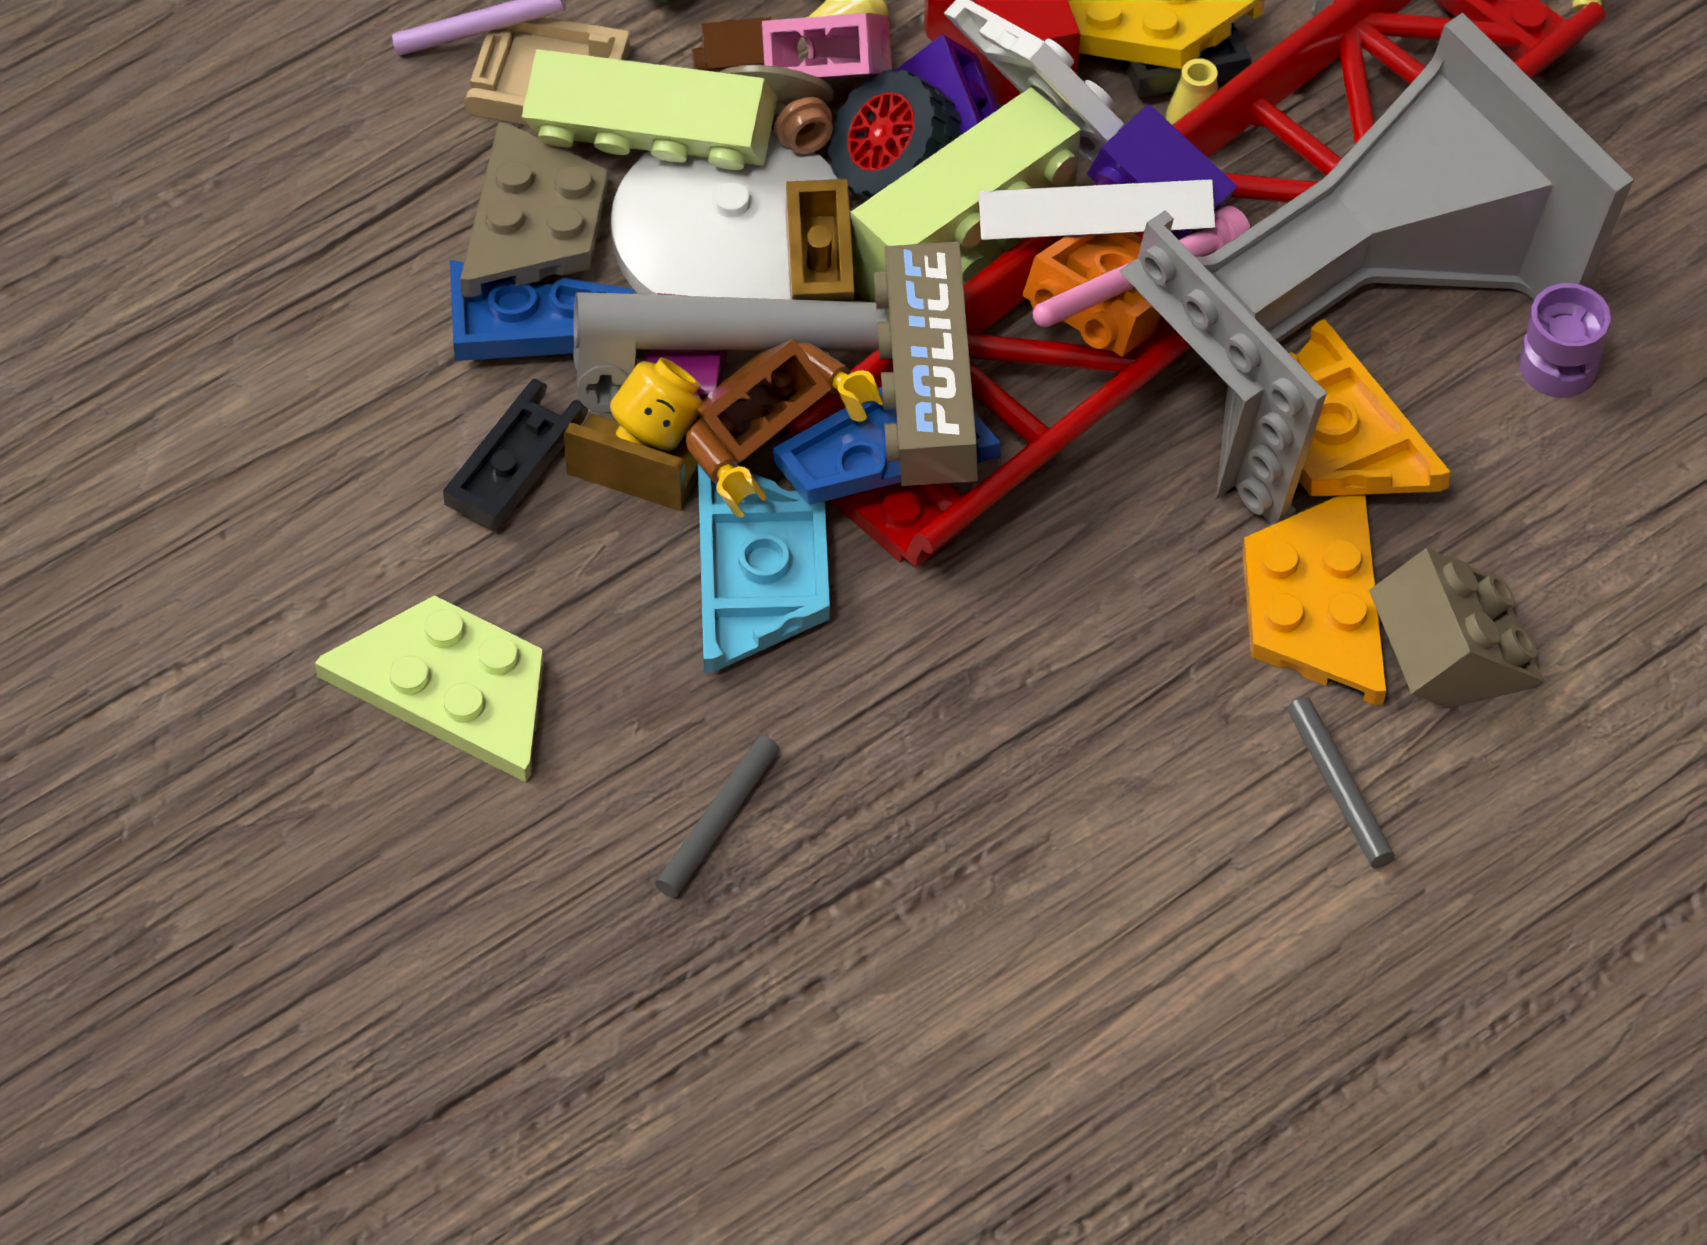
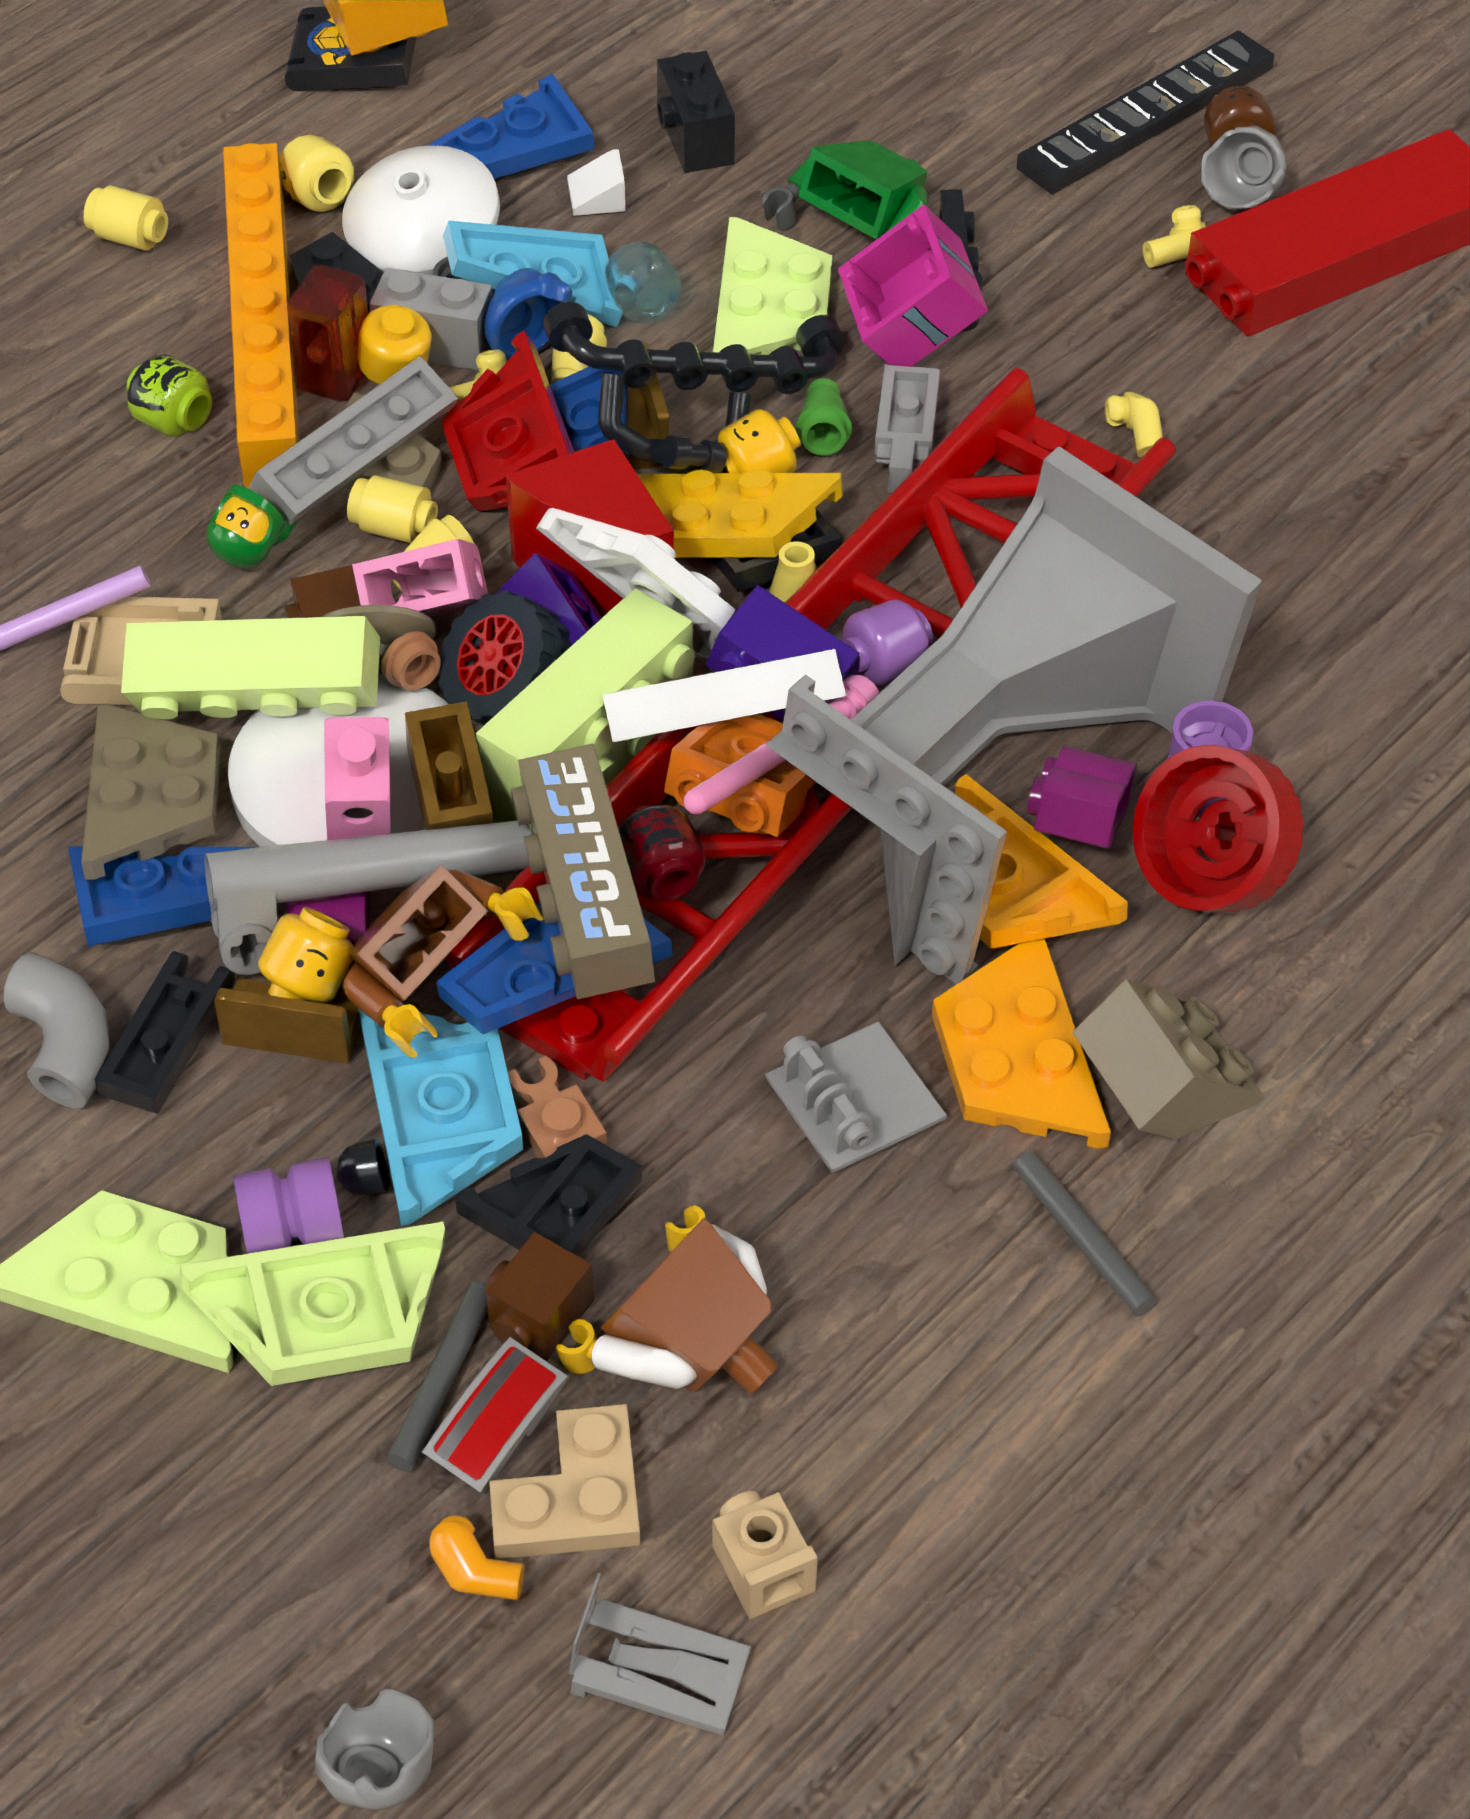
camera: 10 degrees left, 5 degrees down
(428, 433) = (70, 1023): none -> light grey cylinder
(602, 641) = (288, 1208): none -> medium lavender wheel
(603, 1136) = (377, 1751): none -> light grey hair
(620, 731) = (323, 1302): none -> yellowish green wing
(678, 613) = (363, 1168): none -> black hinge
(710, 988) = (466, 1565): none -> light orange arm
(731, 237) = (357, 775): none -> bright pink torso
(759, 859) = (495, 1414): none -> slope
(818, 758) = (538, 1295): none -> reddish brown brick
(824, 956) = (582, 1507): none -> tan plate
(850, 673) = (556, 1196): none -> black wing
(865, 598) = (552, 1116): none -> nougat plate
(903, 1120) = (705, 1676): none -> light grey piece
(949, 798) = (685, 1316): none -> dark orange torso
(979, 1023) = (769, 1571): none -> tan brick
(1007, 354) = (662, 851): none -> dark red head
(1149, 616) = (853, 1095): none -> light grey hinge
(1268, 175) = (887, 638): none -> medium lavender head
(1431, 359) = (1082, 796): none -> magenta brick
(1583, 420) = (1250, 834): none -> red piece

